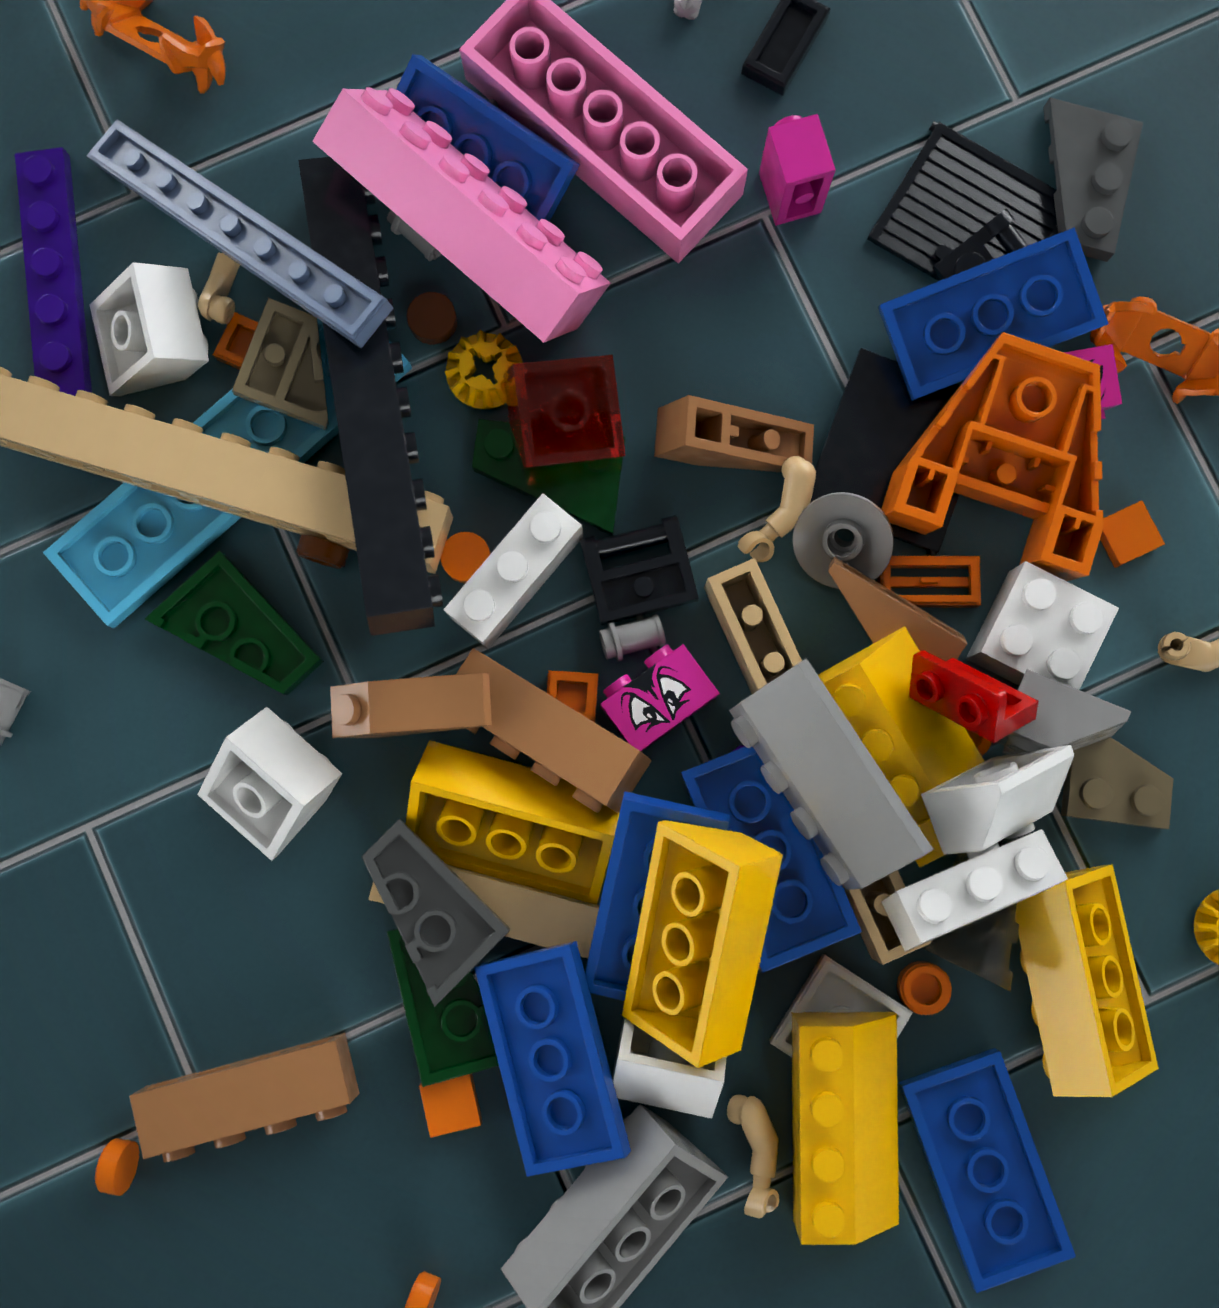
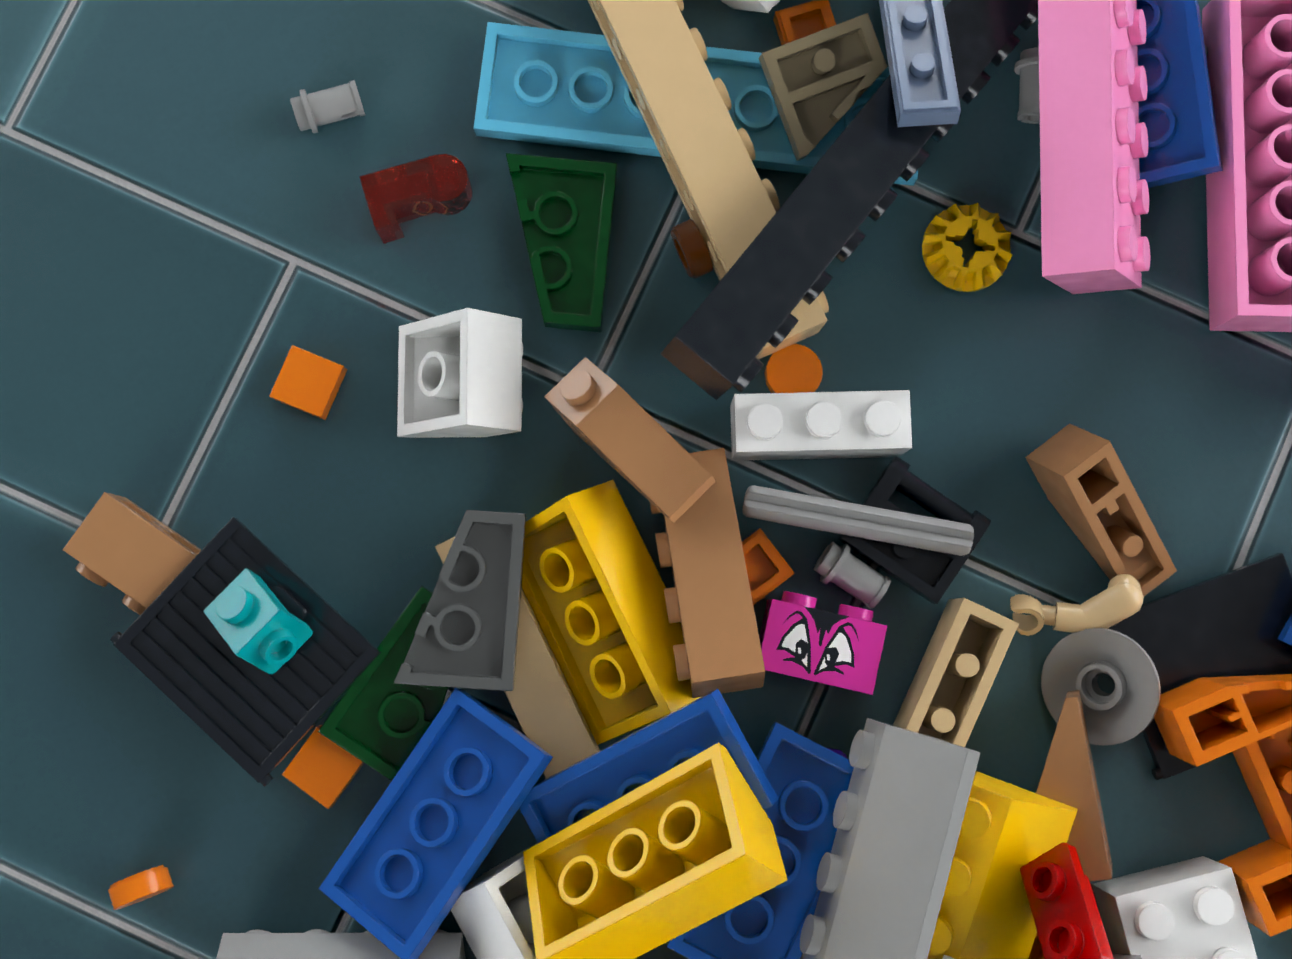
camera: 45 degrees right, 0 degrees up
(114, 703) = (414, 191): none -> clear red leg
(117, 1166) = (39, 532): orange tile -> none
(180, 890) = (308, 382): none -> orange tile
(311, 1065) = (257, 623): none -> teal bracket
(323, 1088) = (235, 703): none -> black piece
(432, 318) = (971, 164): reddish brown tile -> none
(564, 410) = (997, 345): clear red slope -> none
(580, 488) = (950, 390): dark green wing -> none
(598, 602) = (858, 520): none -> light grey axle
(972, 582) = (1164, 831): orange tile -> none

